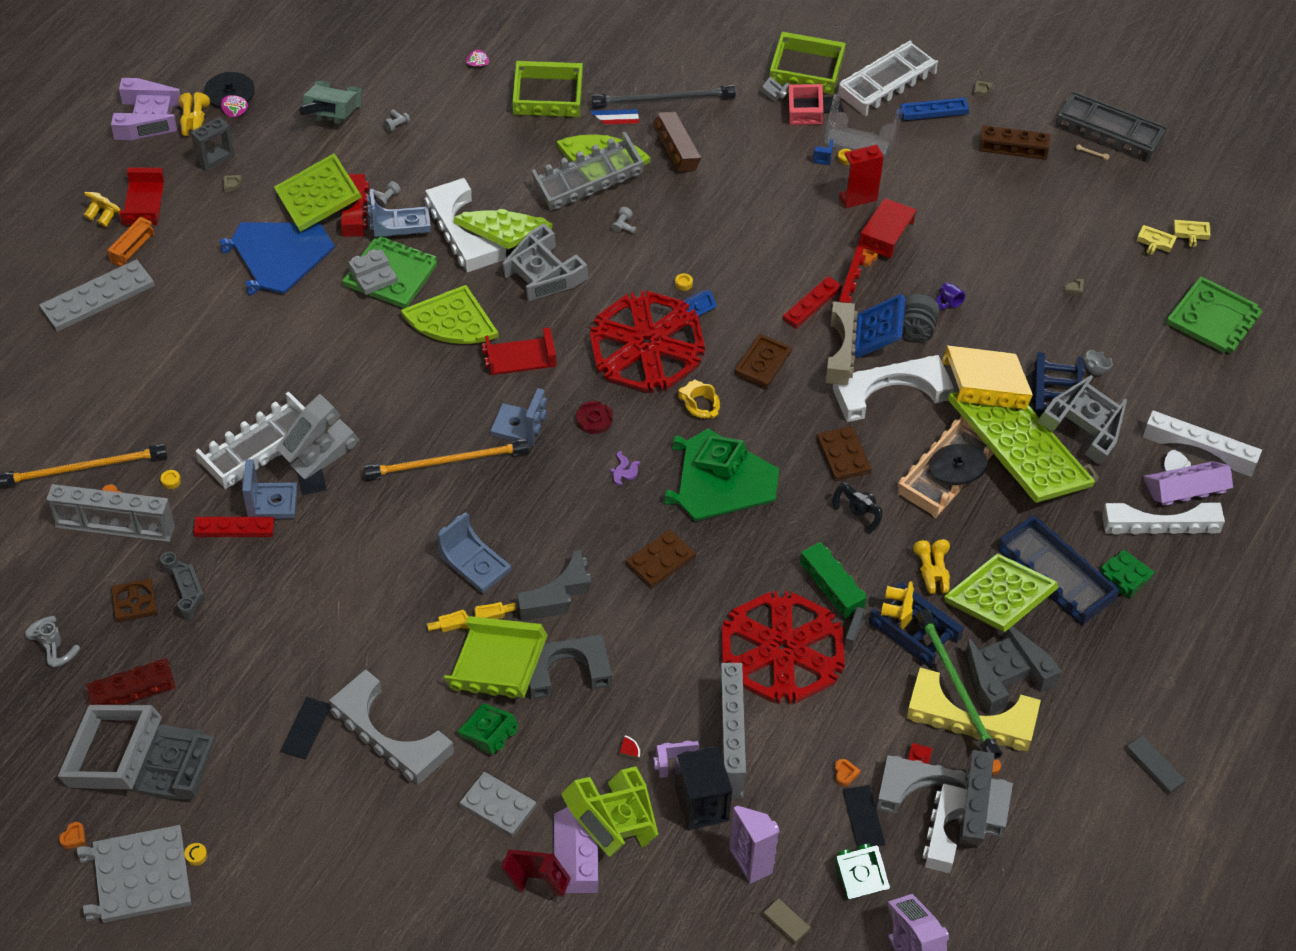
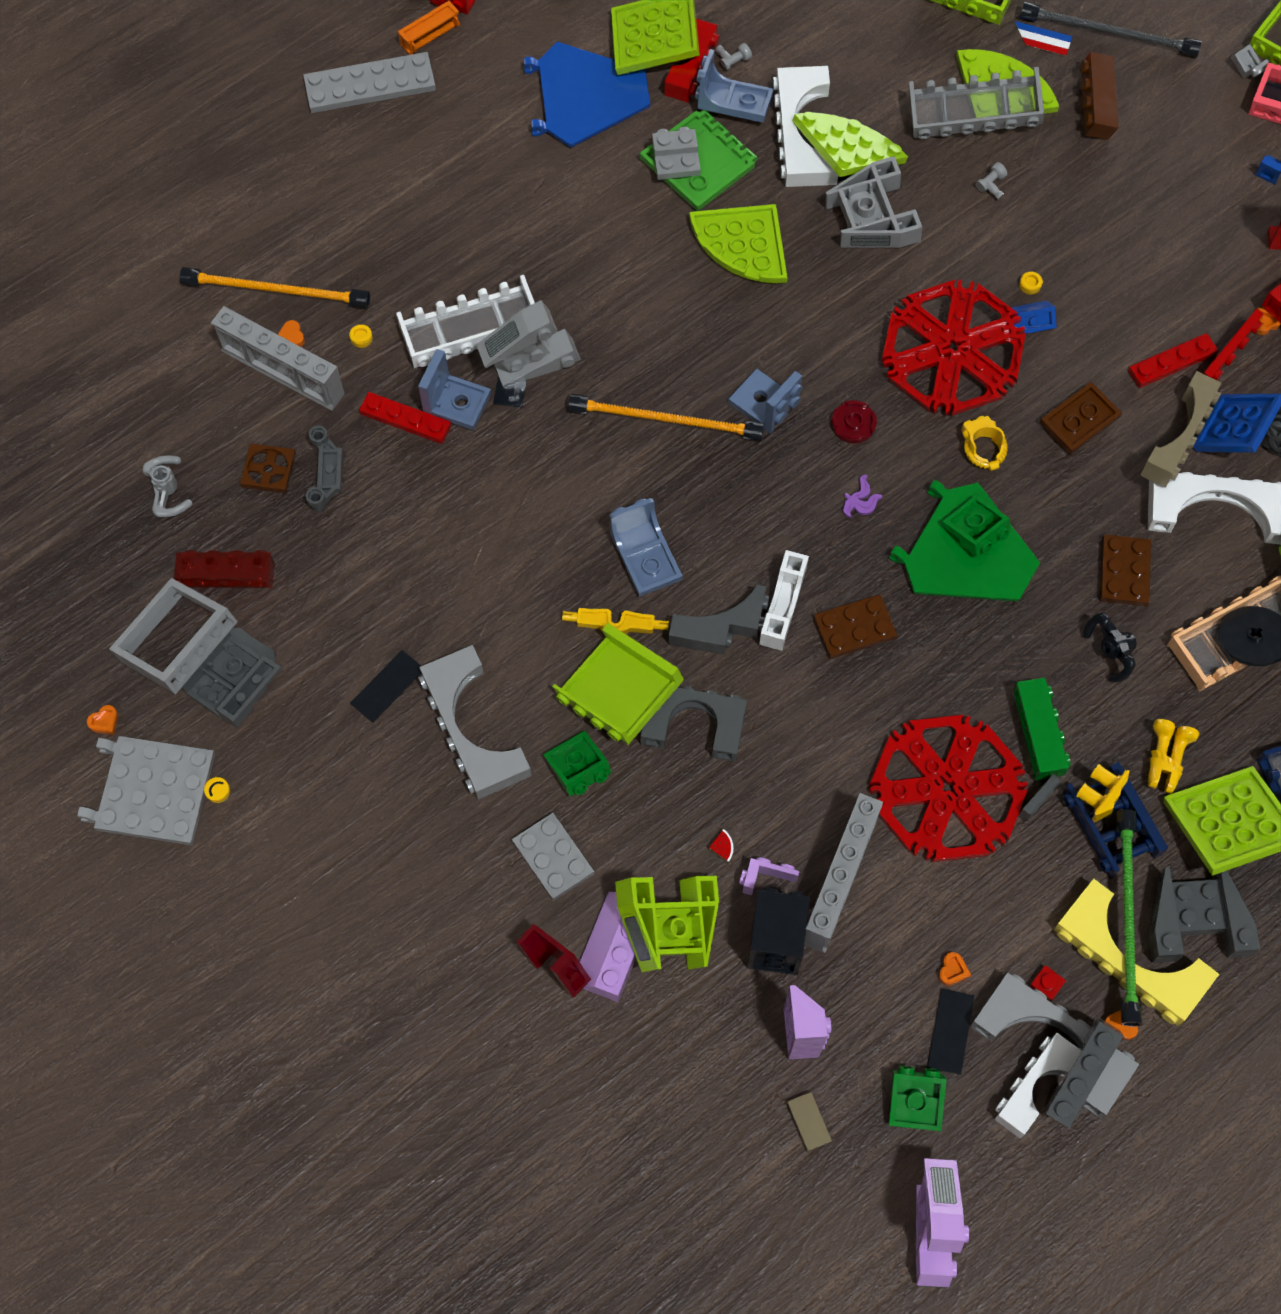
camera: 25 degrees right, 15 degrees up
(520, 355) = (801, 313): red panel -> none
(598, 556) = (784, 600): none -> white arch

